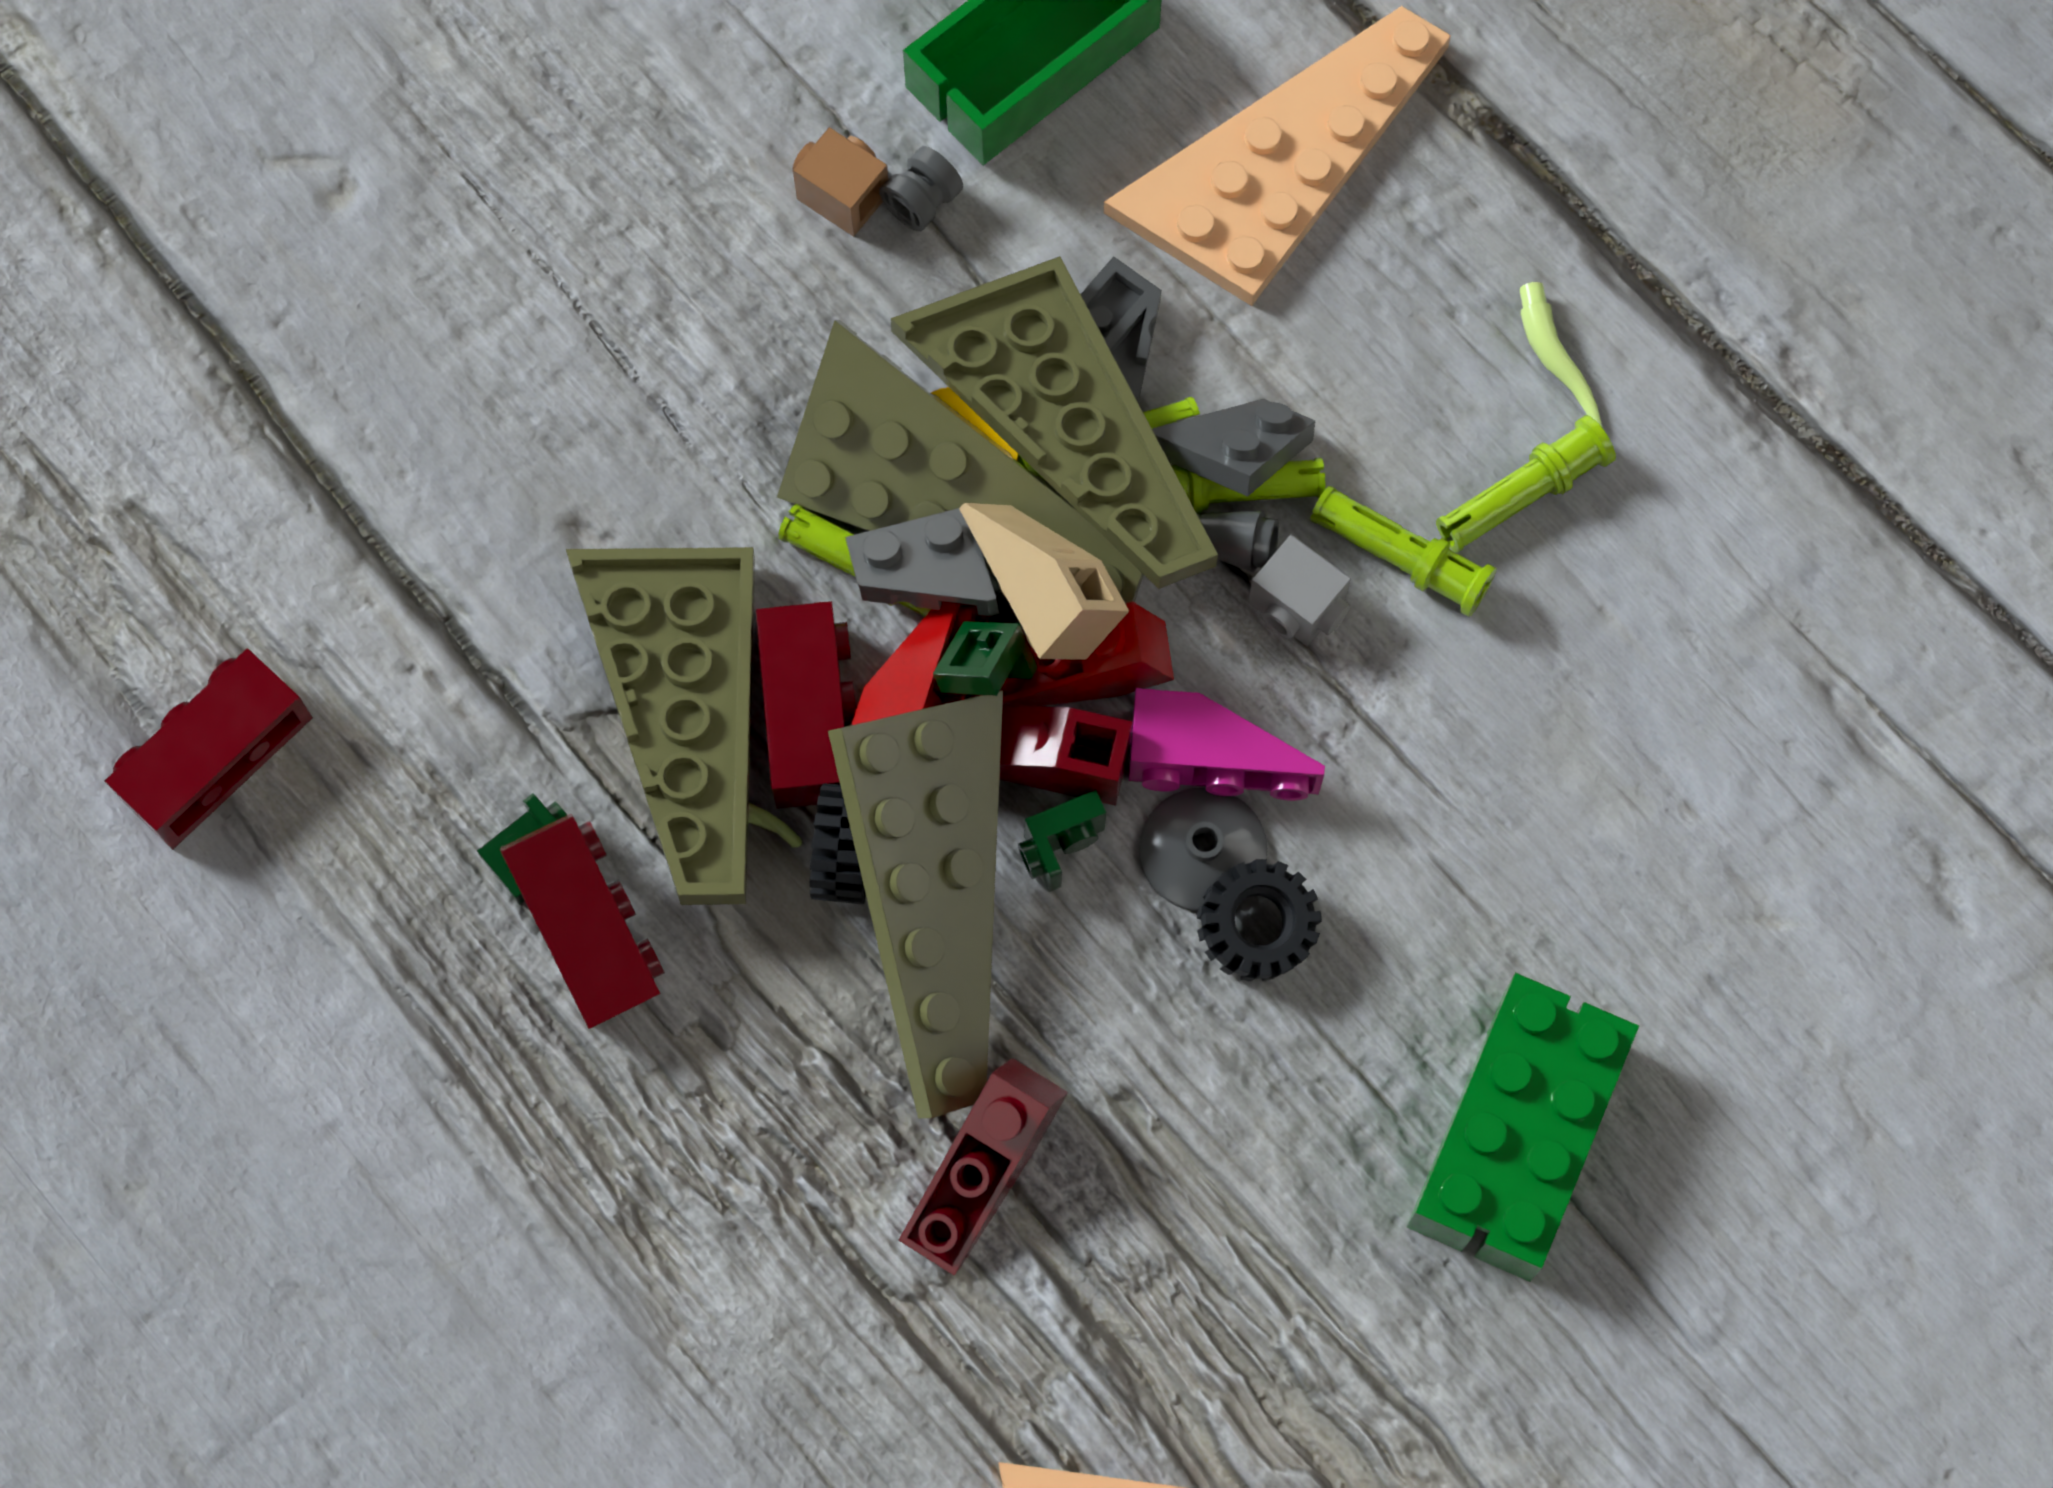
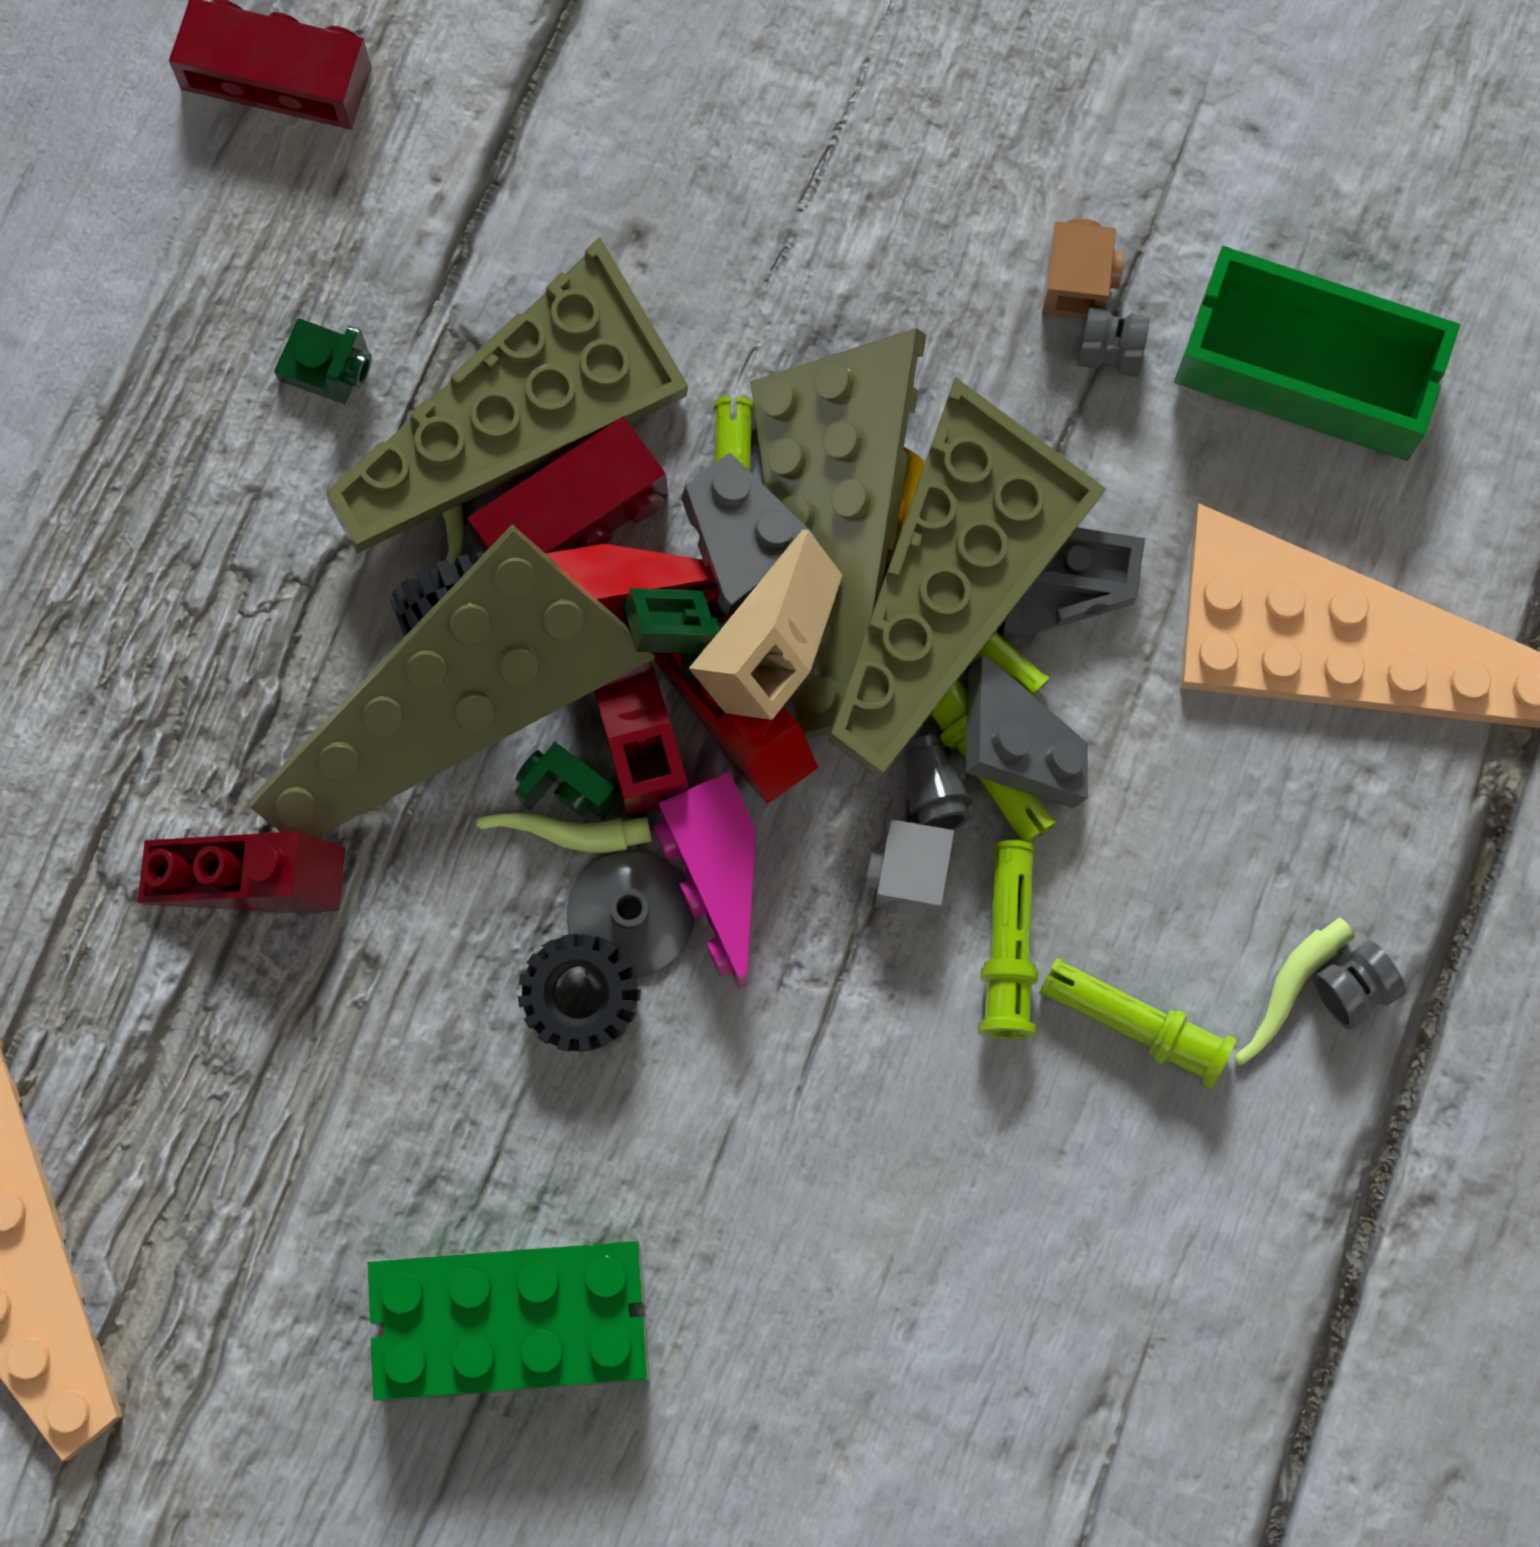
camera: 60 degrees right, 5 degrees up
(583, 919) = (268, 428): dark red brick -> none
(1117, 847) = (583, 837): none -> yellowish green animal
(1587, 300) = (1359, 985): none -> dark grey wheel

